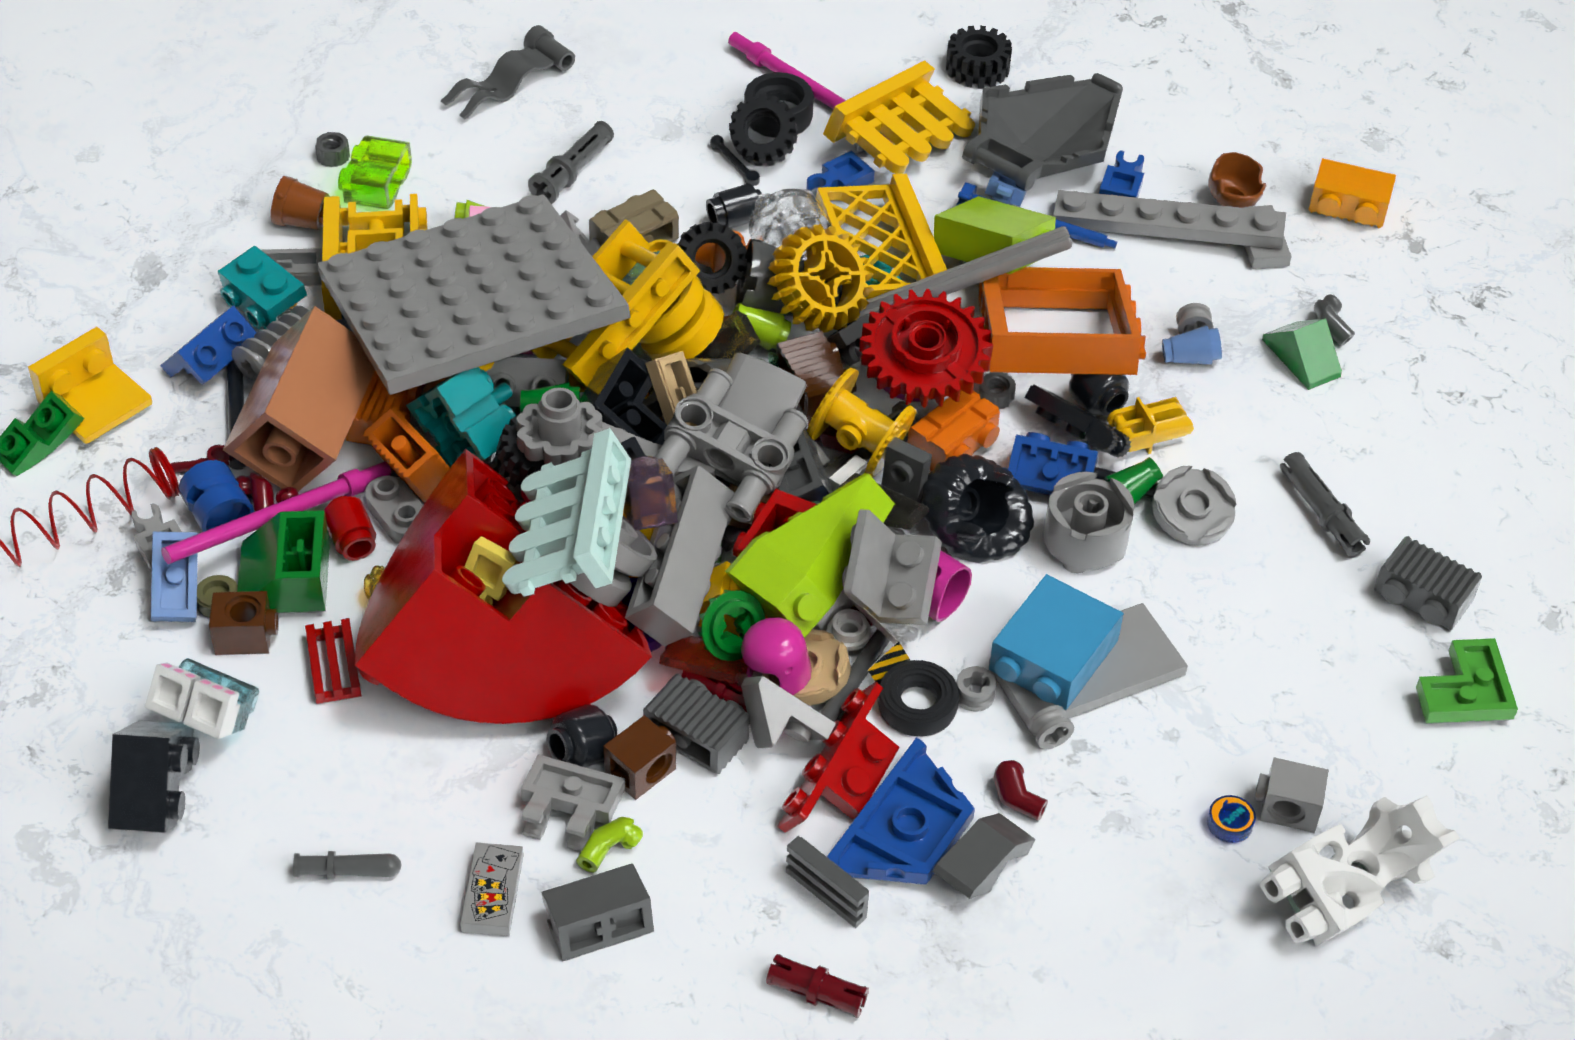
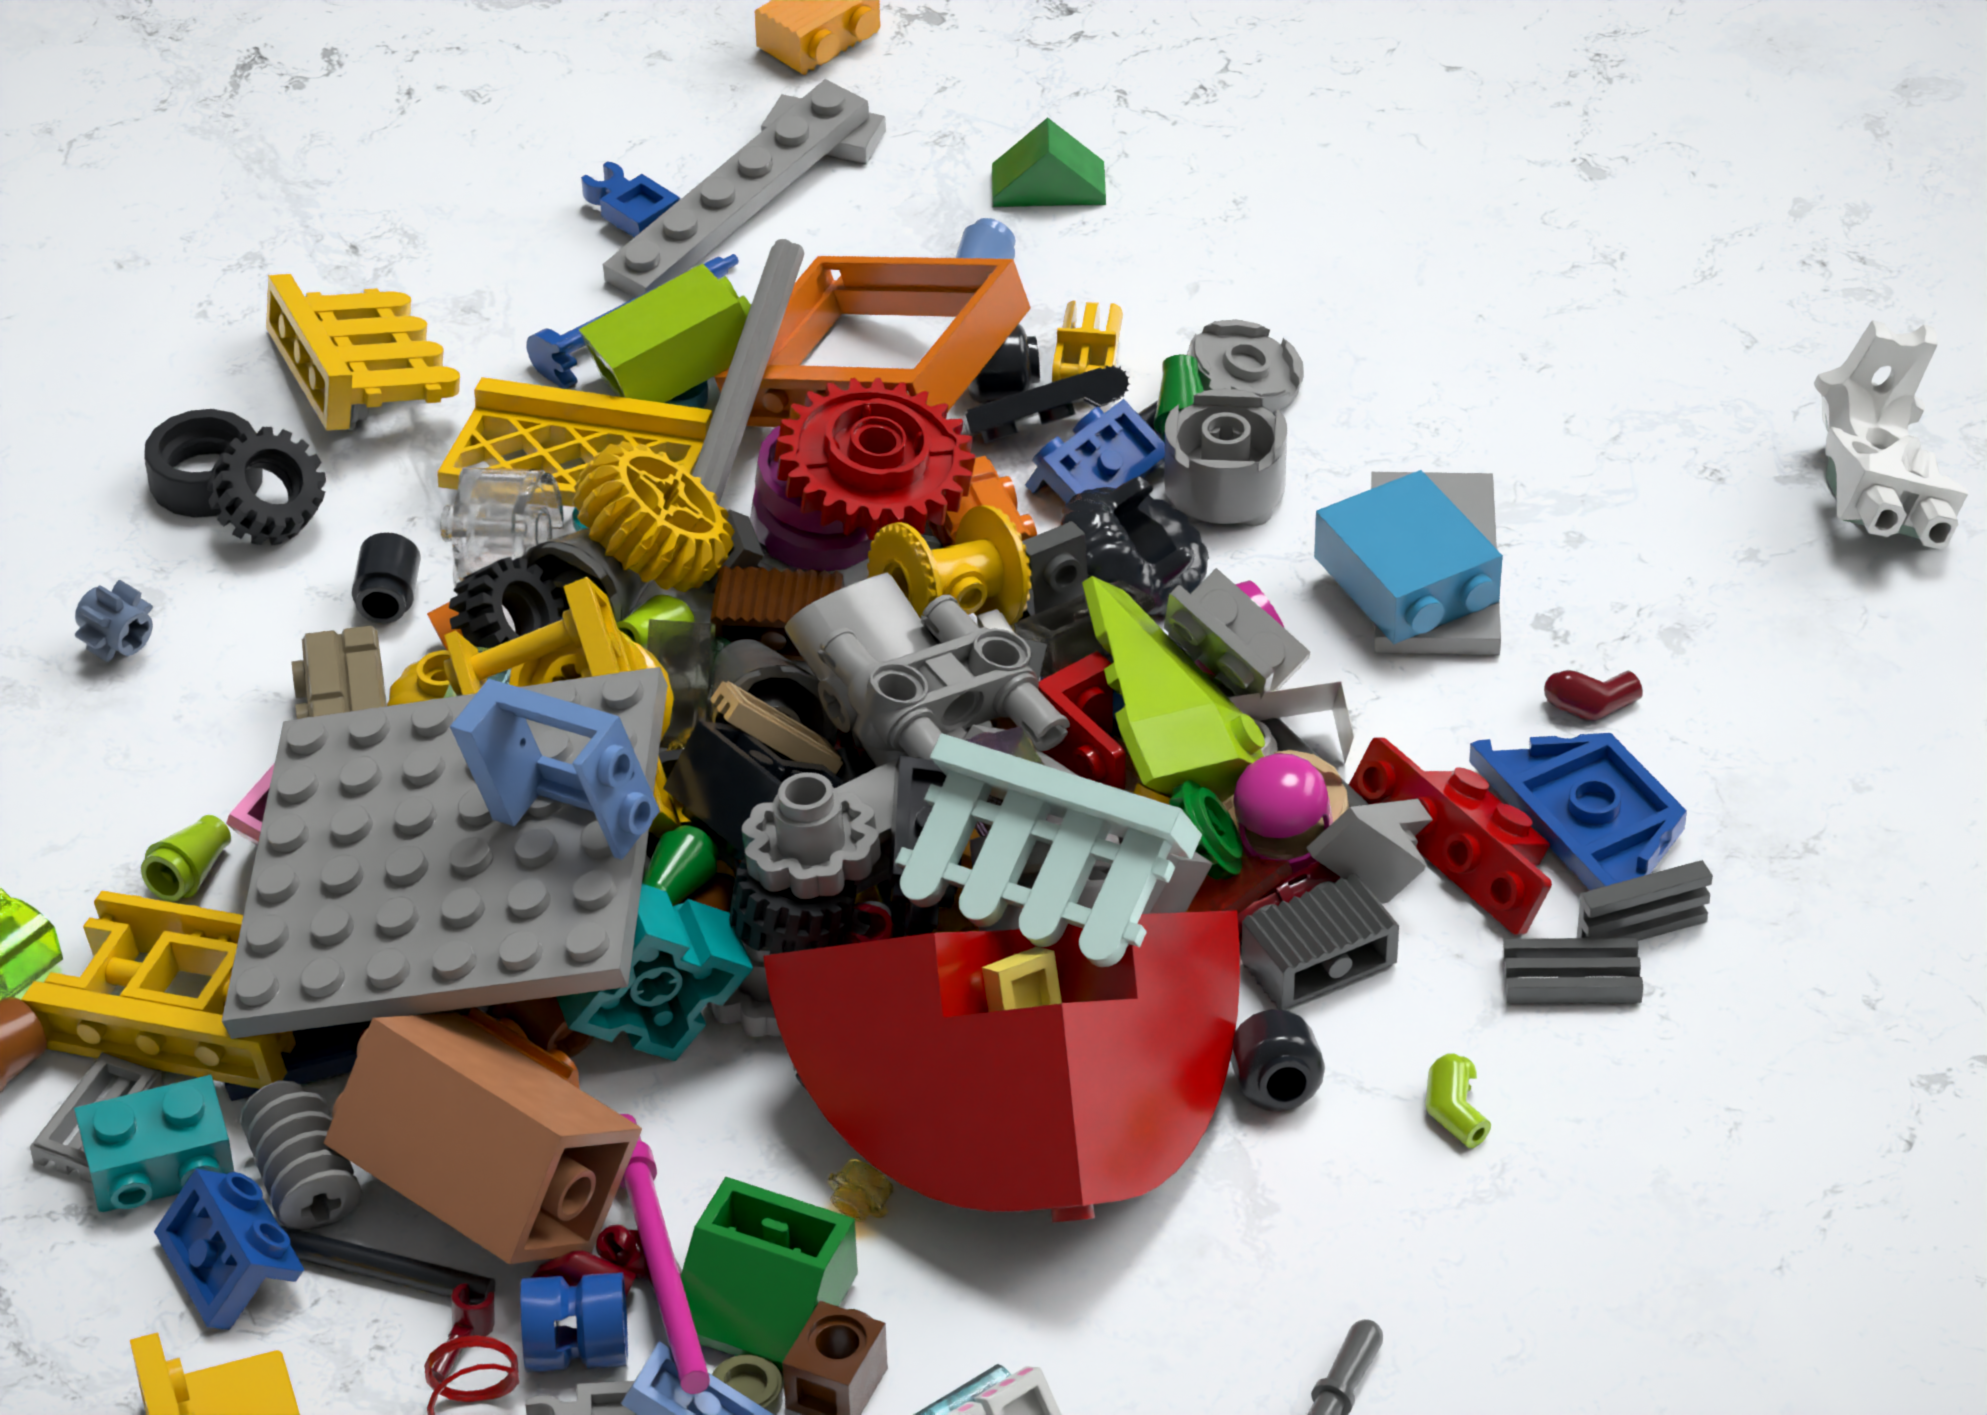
camera: 60 degrees left, 5 degrees down
(329, 634) = (962, 1282): red tile -> none
(350, 527) = (699, 1182): red brick -> none
(390, 503) = (714, 1135): light grey plate -> none
(407, 453) = (650, 1067): orange brick -> none
(491, 277) = (514, 772): none -> medium blue panel
(492, 889) = (1464, 1242): light grey tile -> none
(563, 169) = (152, 730): dark grey pin -> none
(572, 790) = (1355, 1101): light grey plate -> none
(598, 911) = (1569, 1138): dark grey hinge -> none
(628, 120) = (113, 620): none -> sand blue gear
(641, 756) = (1345, 1014): reddish brown brick -> none
(751, 177) = (318, 549): black hinge -> none
(759, 834) = (1583, 968): none -> dark grey tile
(761, 56) = (73, 446): dark pink bar -> none
(817, 985) = (1787, 977): dark red pin -> none
(842, 171) = (405, 452): blue plate -> none
(918, 721) = (1400, 699): black tyre -> none
(976, 676) = (1414, 657): light grey bush -> none
(978, 56) = (274, 234): black tyre -> none
(982, 854) = (1683, 752): dark grey slope -> none
(1004, 190) = (567, 308): medium blue plate -> none
(1044, 127) = (488, 222): dark grey windscreen -> none
(1051, 727) = (1518, 624): light grey bush -> none
(1193, 317) = (938, 238): light grey bush -> none
(1231, 818) = (1734, 534): clear blue tile -> none
(1236, 180) = (721, 106): dark orange hair -> none
(1292, 794) = (1740, 463): light grey brick -> none
(1328, 309) = (1001, 129): dark grey arm -> none
(1332, 514) = (1313, 261): dark grey pin -> none
(1428, 583) = (1495, 230): dark grey brick -> none
(1477, 690) = (1671, 261): bright green plate -> none

